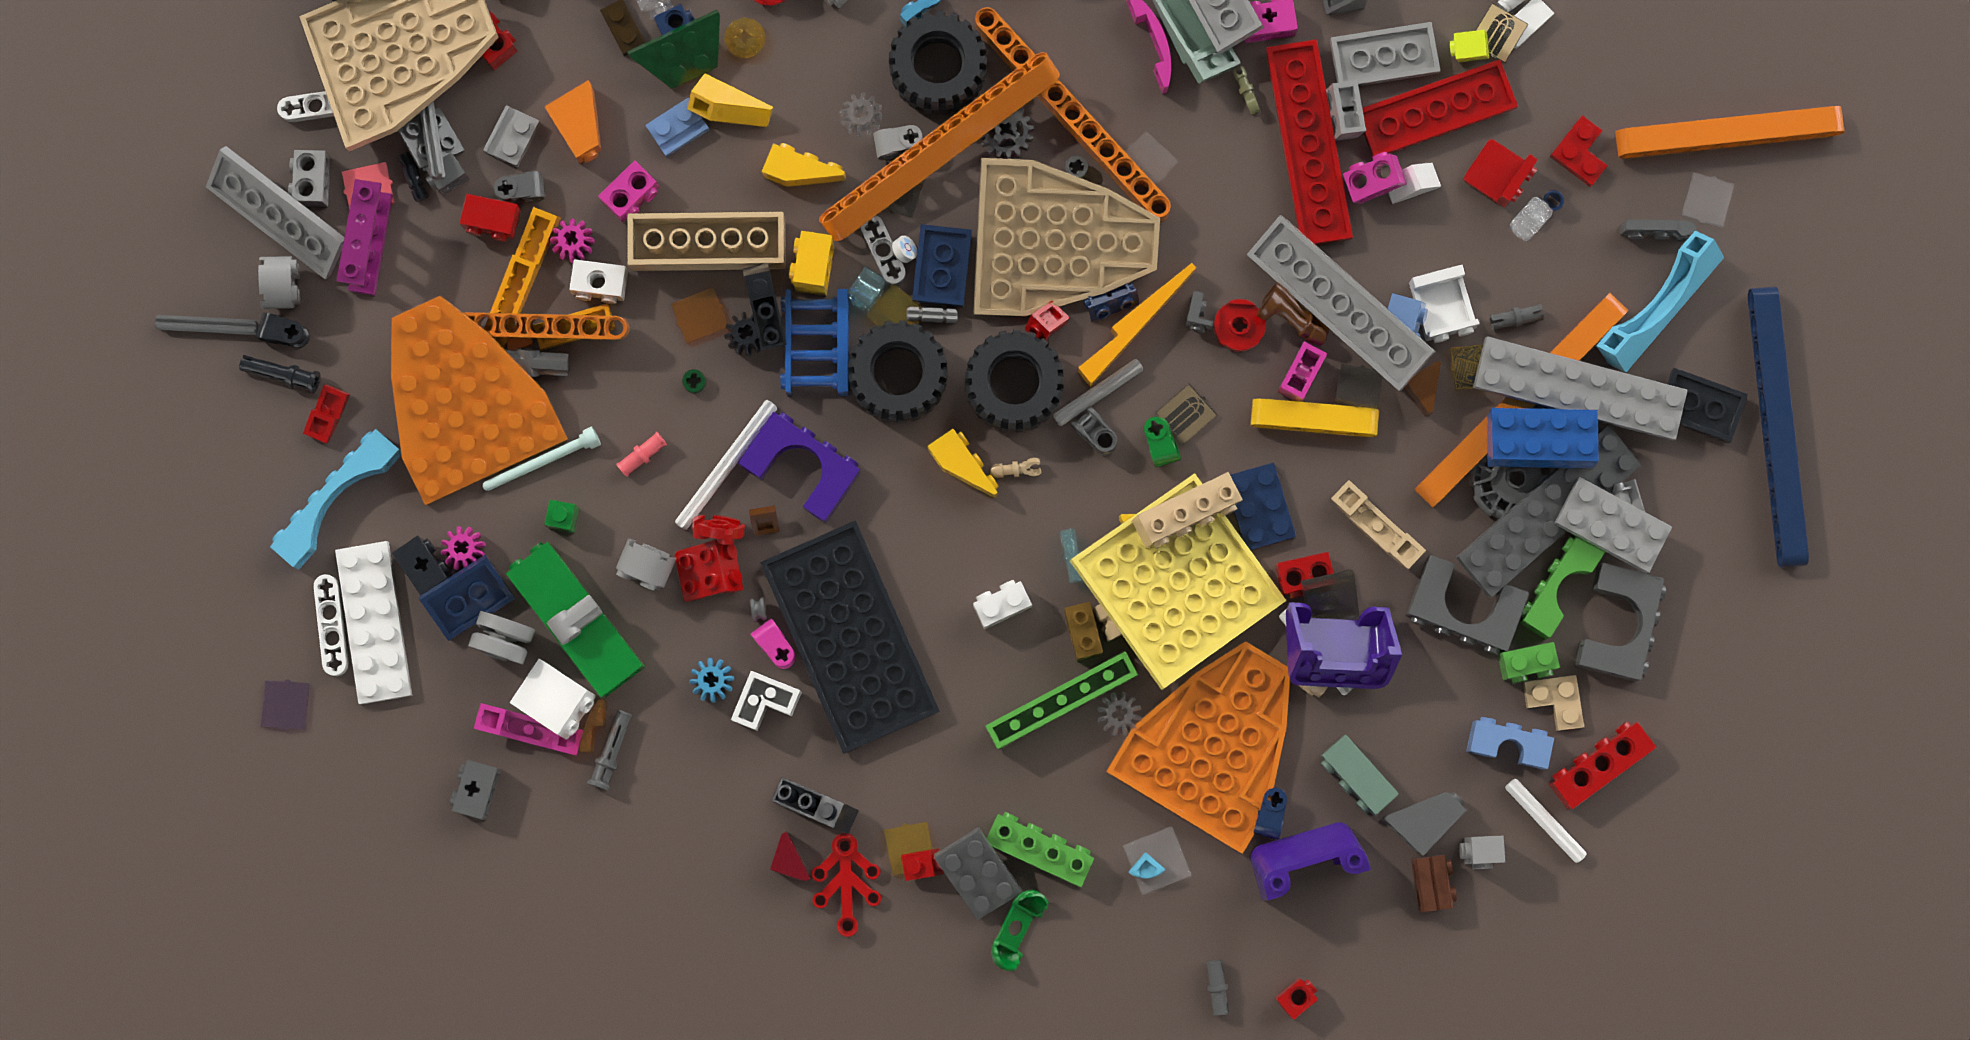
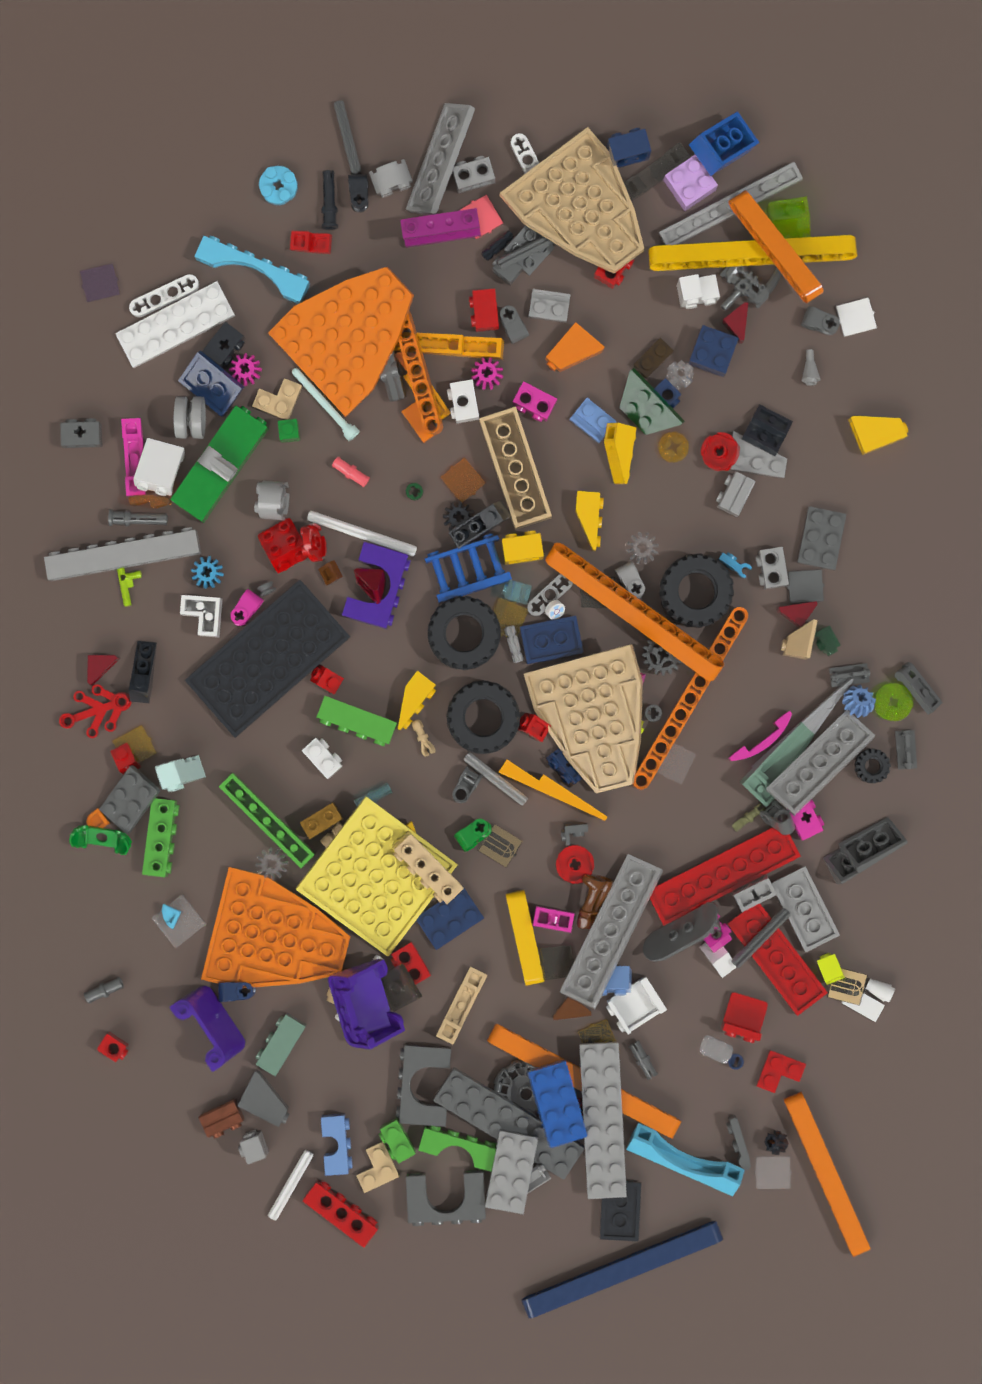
camera: 75 degrees right, 5 degrees up
(232, 418) = (284, 194): none -> medium azure plate
(524, 521) = (280, 405): none -> tan plate
(600, 350) = (413, 417): none -> orange tile
(653, 784) = (122, 555): none -> light grey brick
(692, 791) = (127, 583): none -> lime hose
(793, 471) = (372, 582): none -> dark red slope
(900, 569) = (326, 679): none -> red bracket
(963, 794) = (180, 772): none -> light aqua wedge
(967, 544) = (357, 720): none -> bright green brick
(989, 926) = (97, 819): none -> orange tile
(1260, 50) = (778, 818): none -> dark grey piece
(1370, 213) = (682, 933): none -> dark grey piece
(1405, 119) = (761, 937): none -> dark grey axle
(1674, 175) = (776, 1142): none -> black gear

